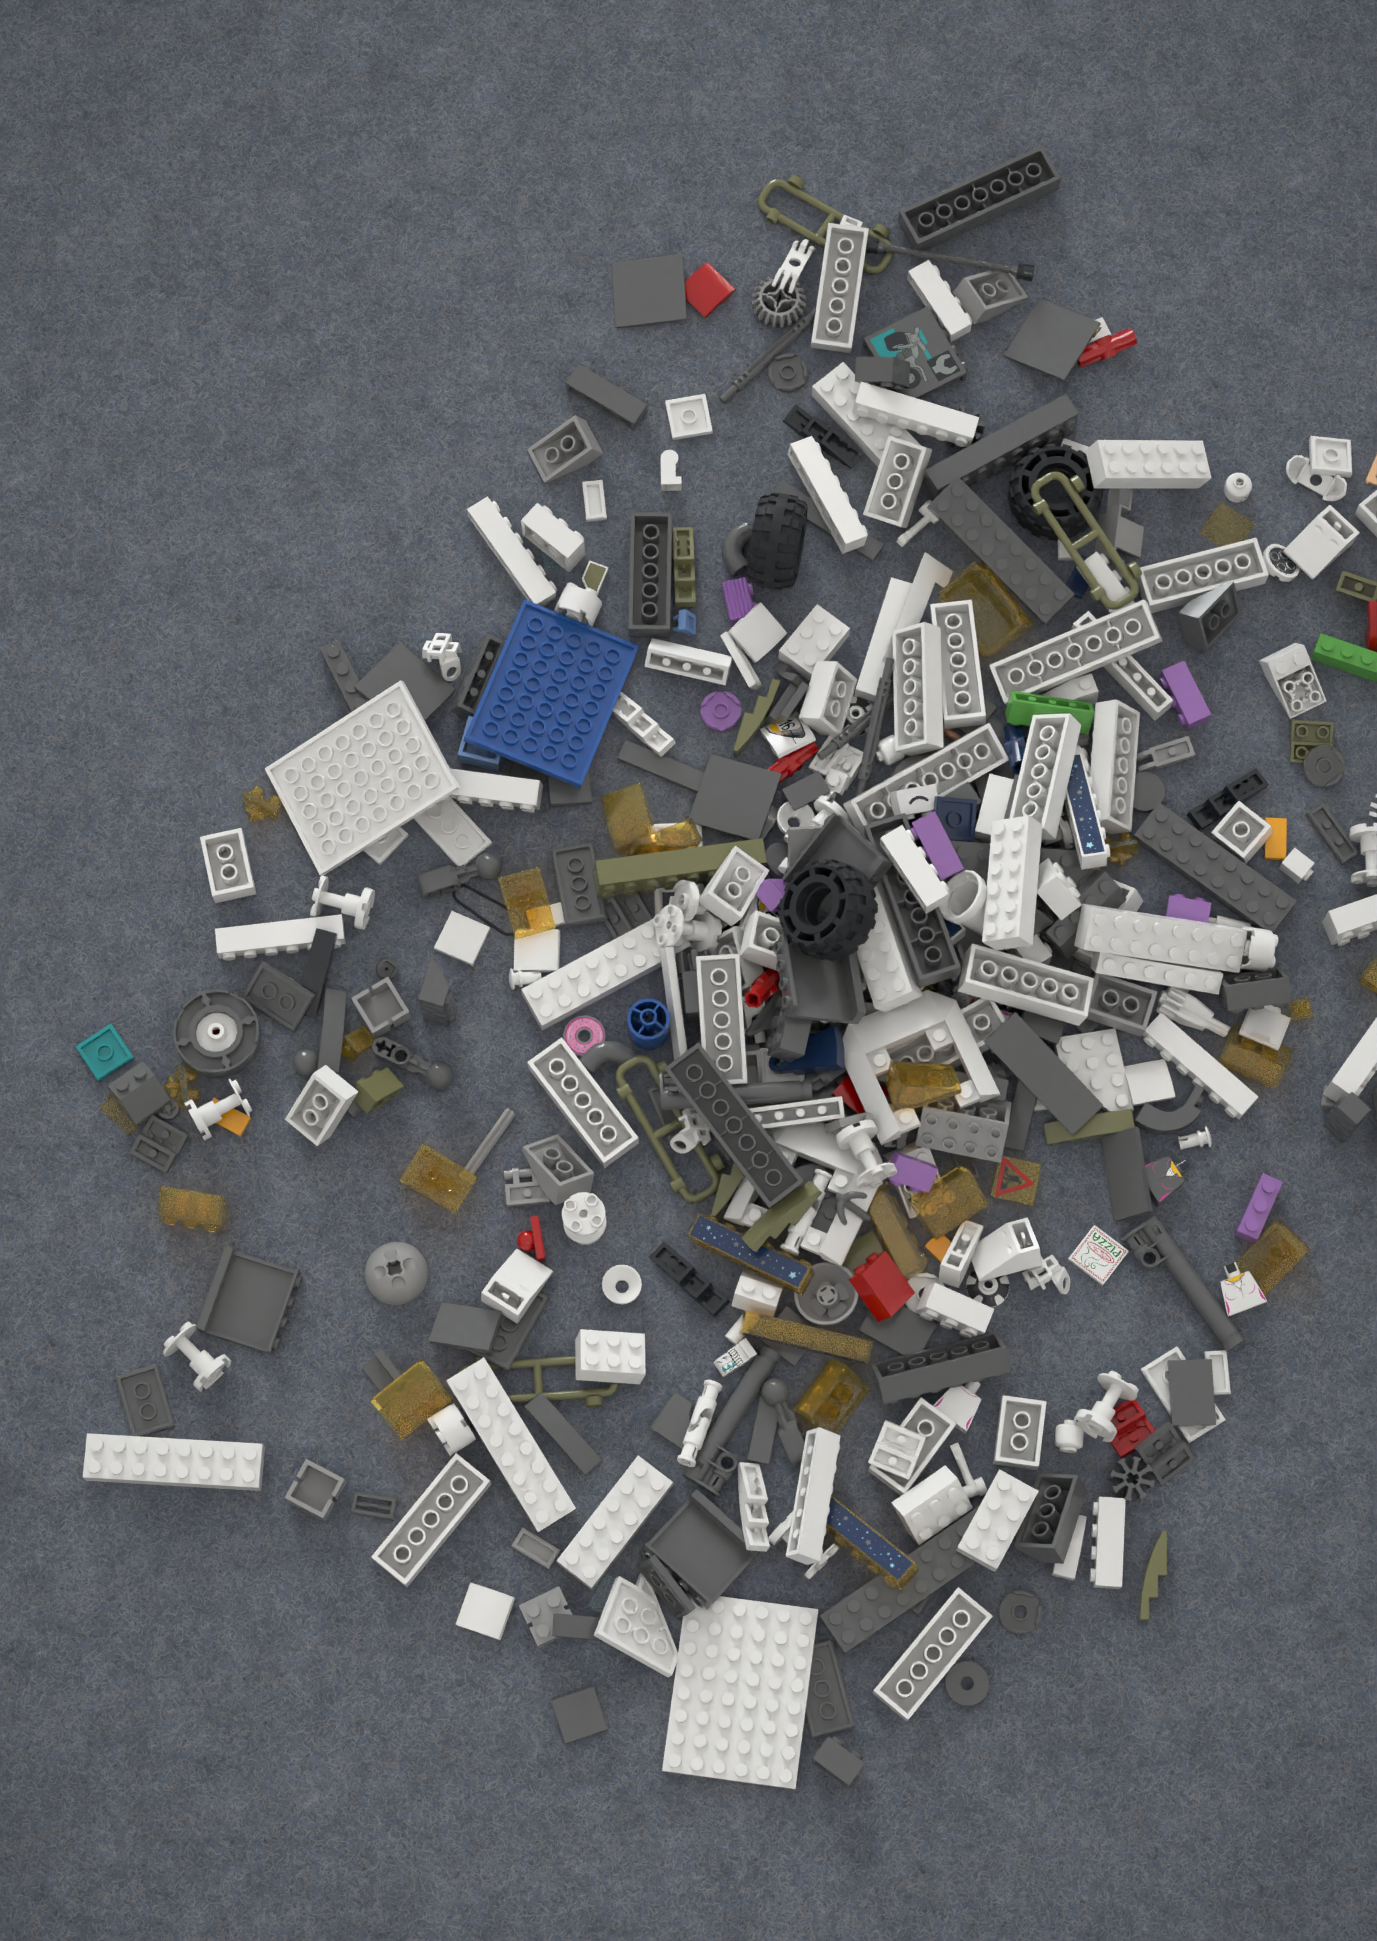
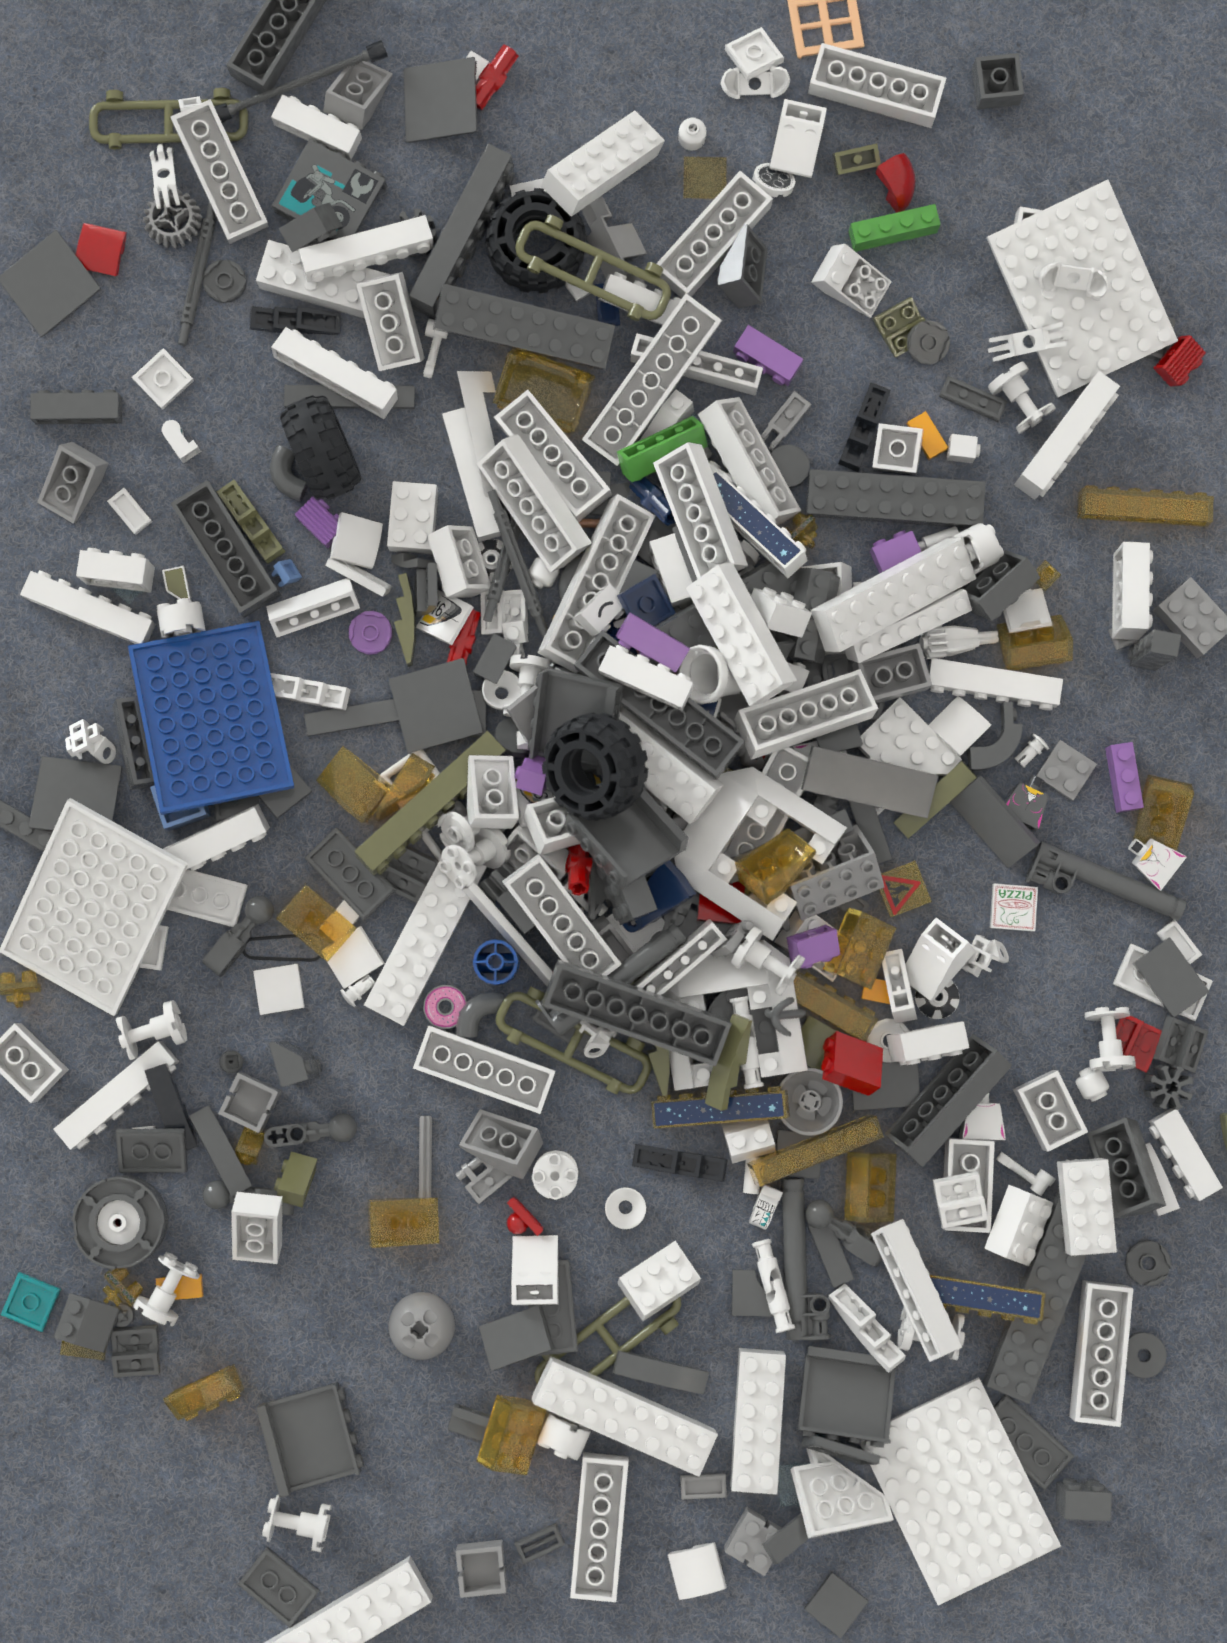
camera: 35 degrees left, 10 degrees up
(1214, 1174) = (1066, 770): none -> light grey plate

